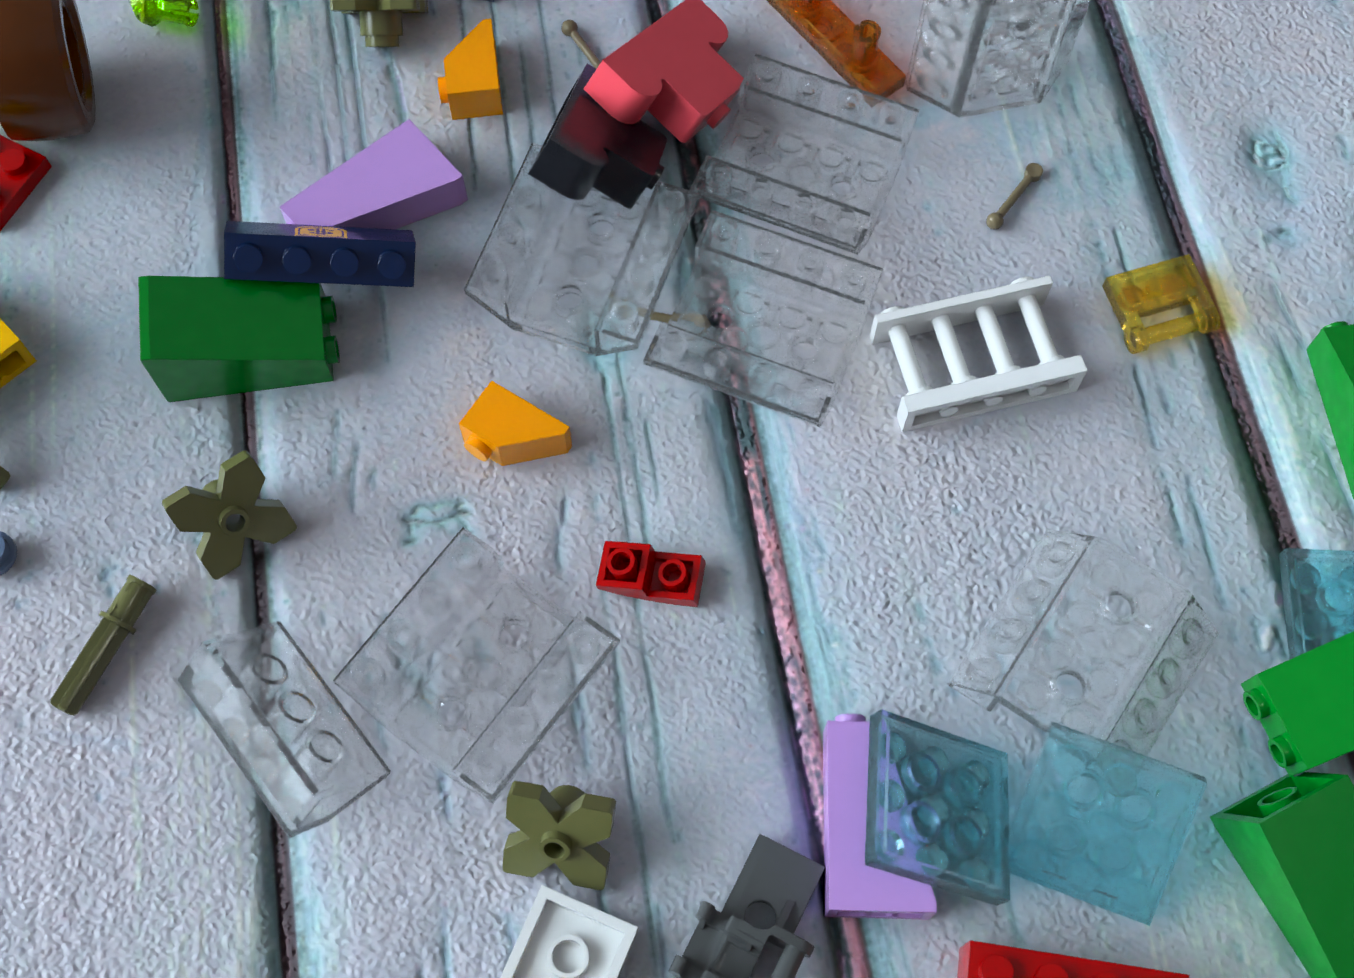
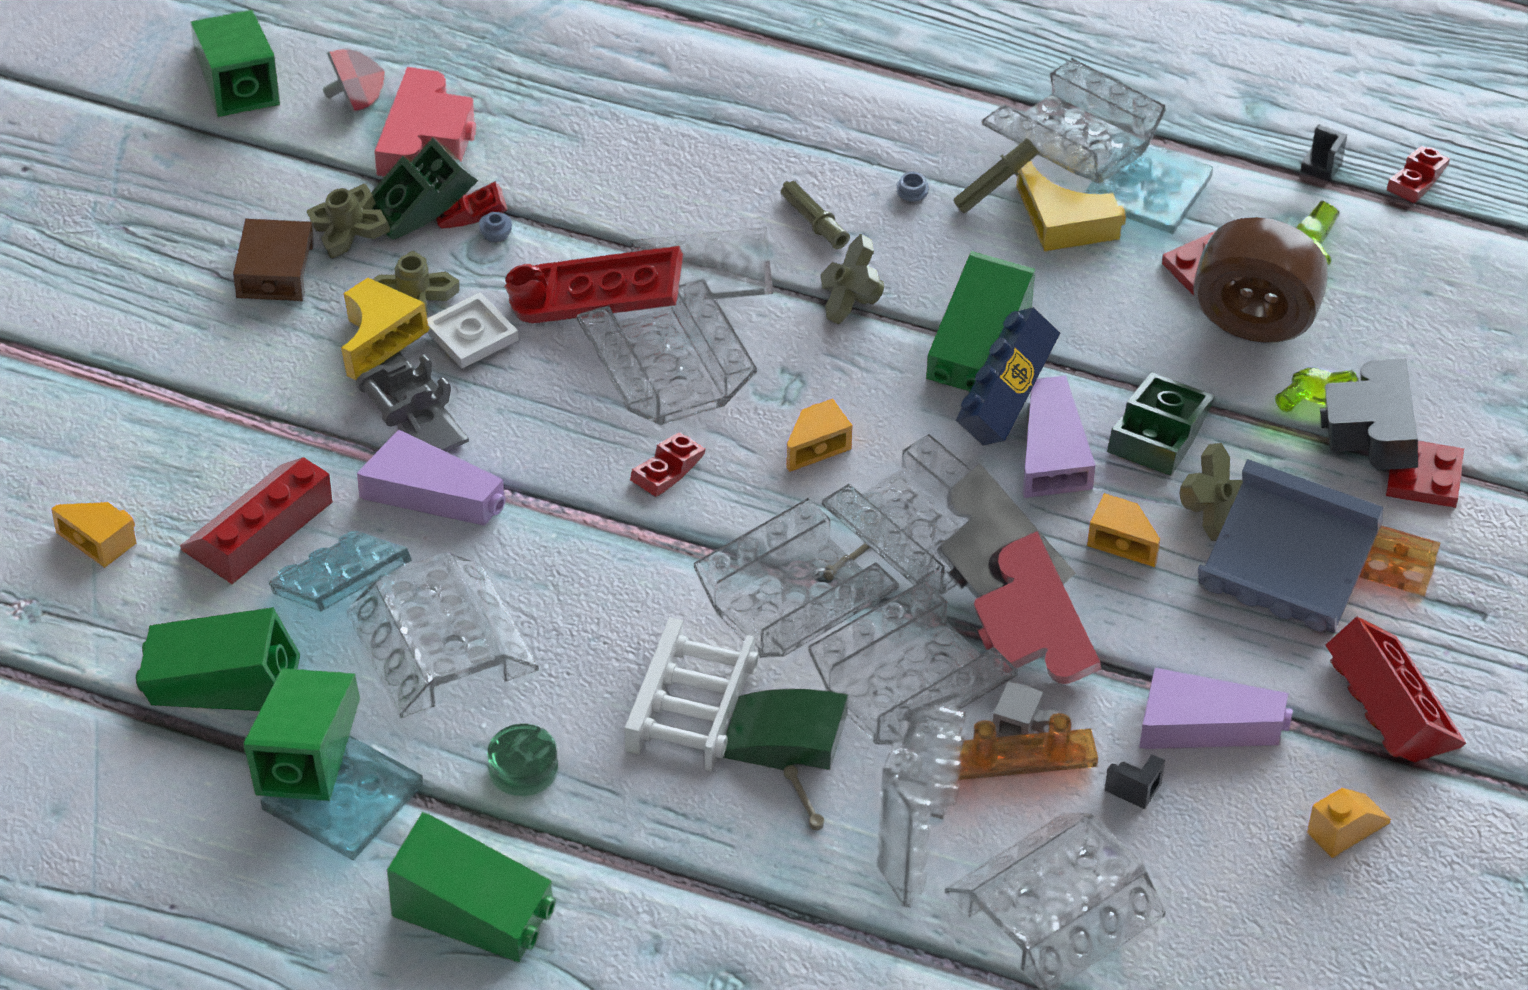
camera: 120 degrees right, 20 degrees down
(286, 109) = (1160, 423): none -> dark green slope
(411, 818) = (580, 285): none -> red plate
(559, 830) = (541, 346): olive plant -> none
(570, 28) = (1137, 609): dark tan hinge -> none
(789, 42) = (1021, 711): none -> light grey brick
(937, 809) = (411, 496): clear light blue plate -> none
(953, 232) = (787, 728): none -> dark green slope
(1156, 290) = (661, 827): clear yellow plate -> none
(1180, 466) = (522, 759): none -> clear green head

